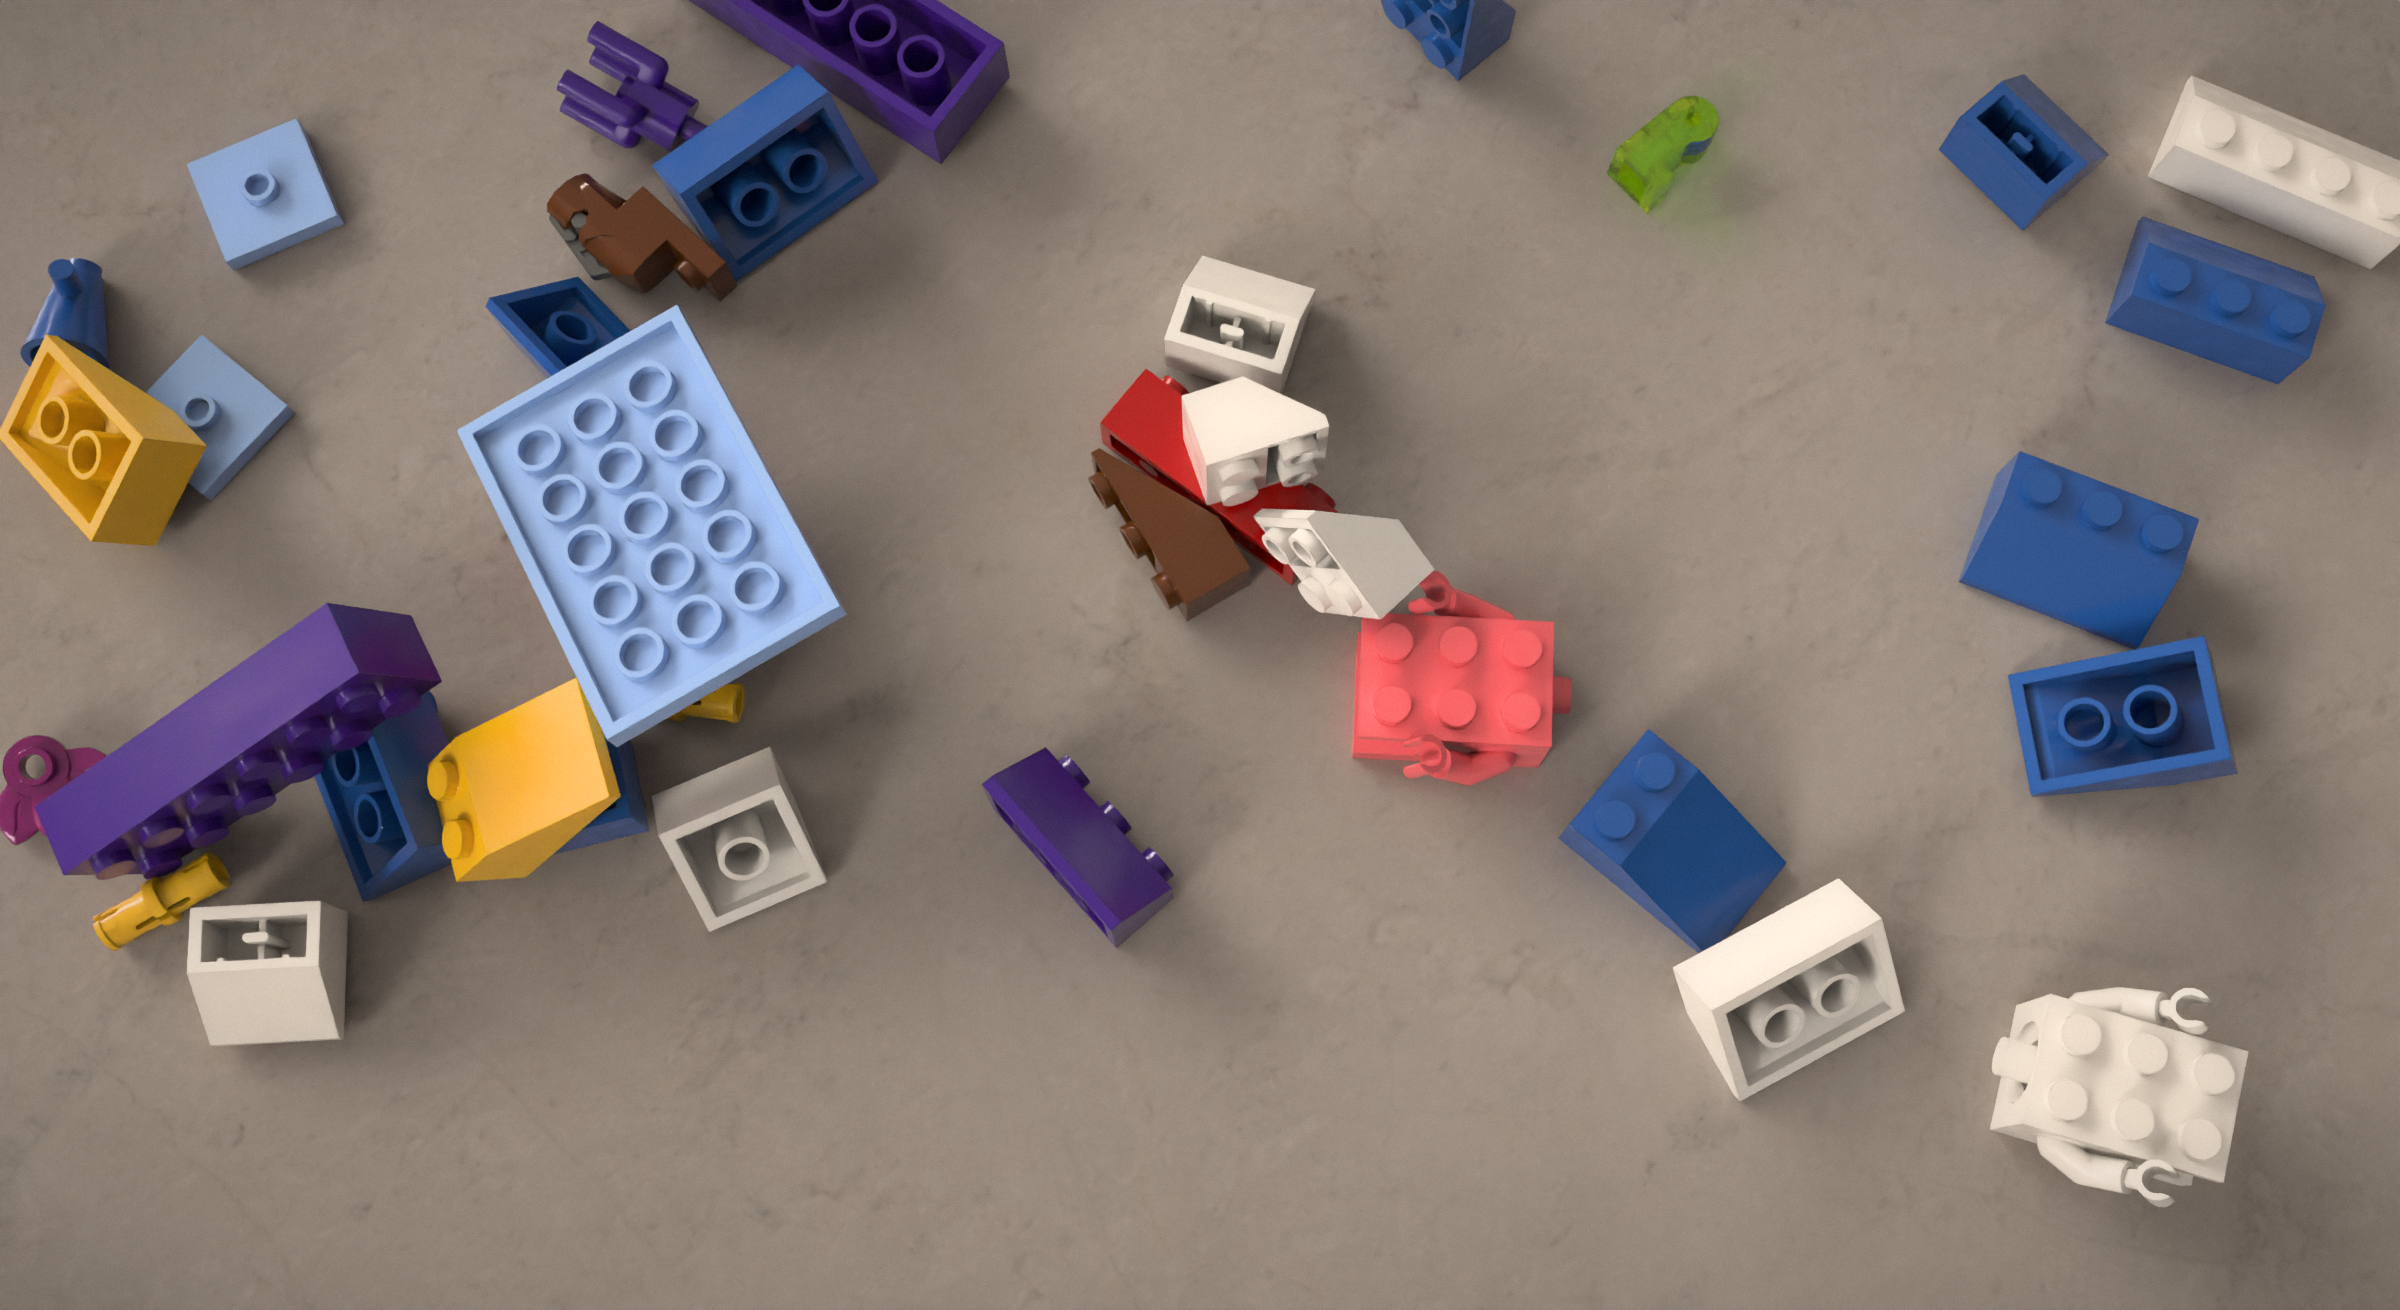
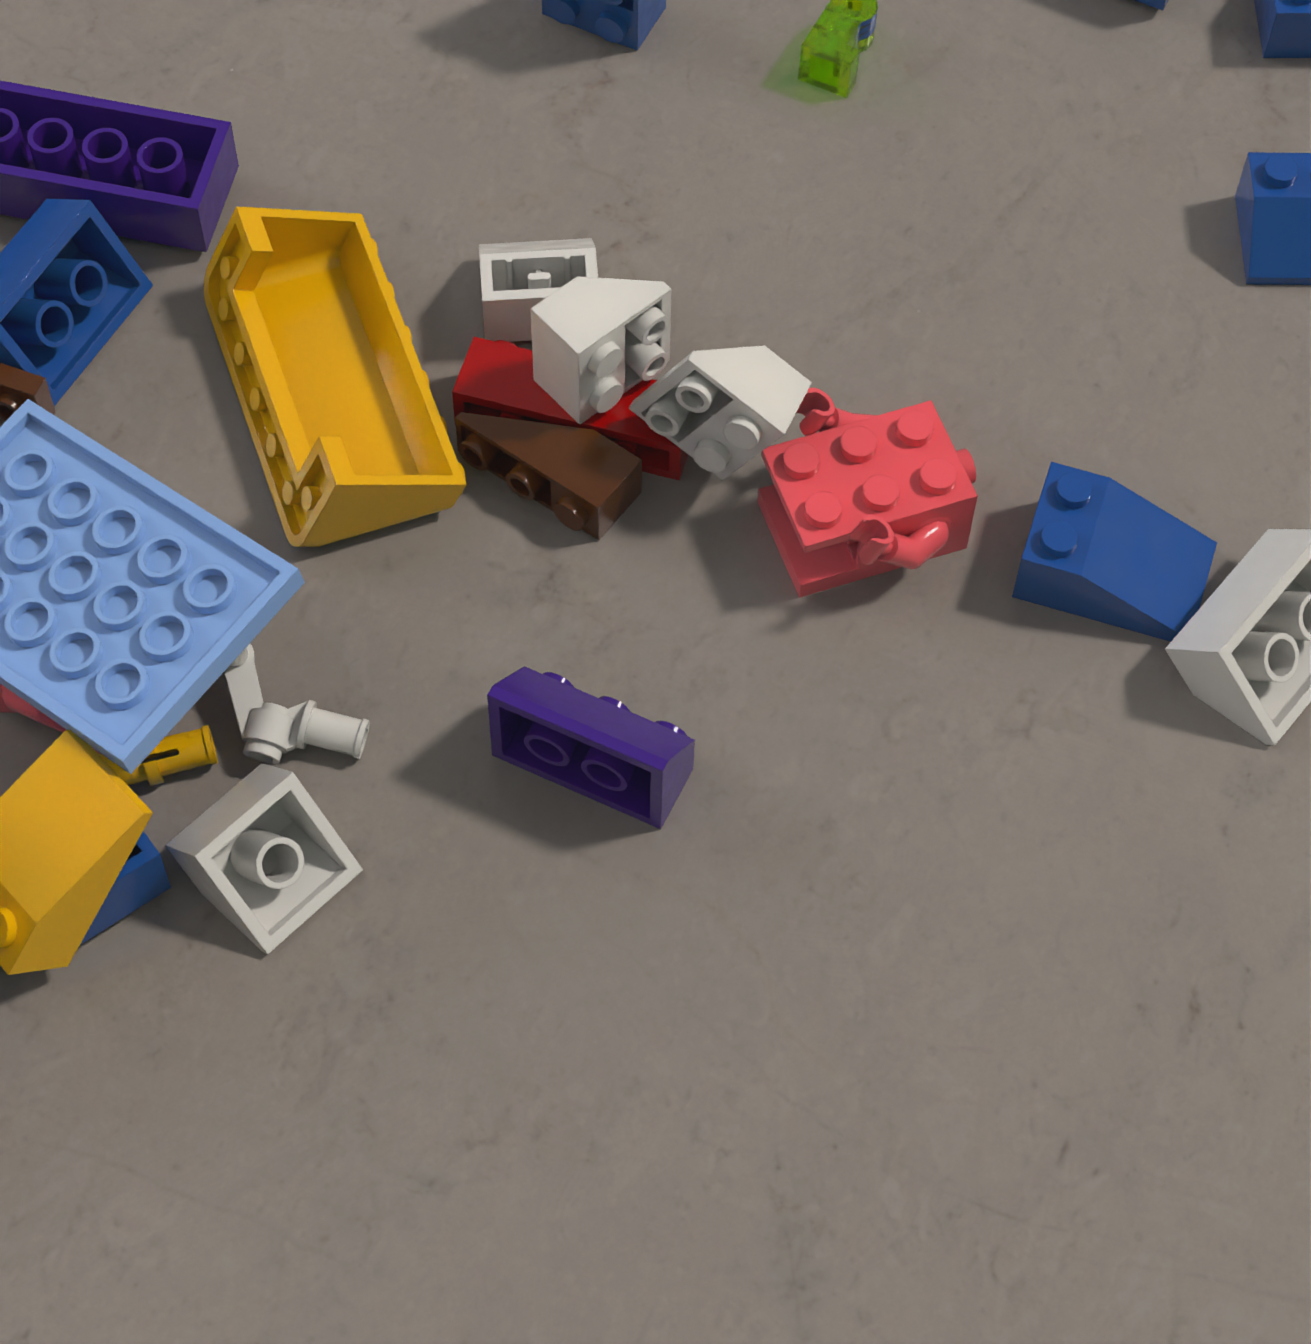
camera: 25 degrees left, 15 degrees down
(801, 711) = (275, 730): none -> white pin
(997, 353) = (327, 375): none -> yellow windscreen

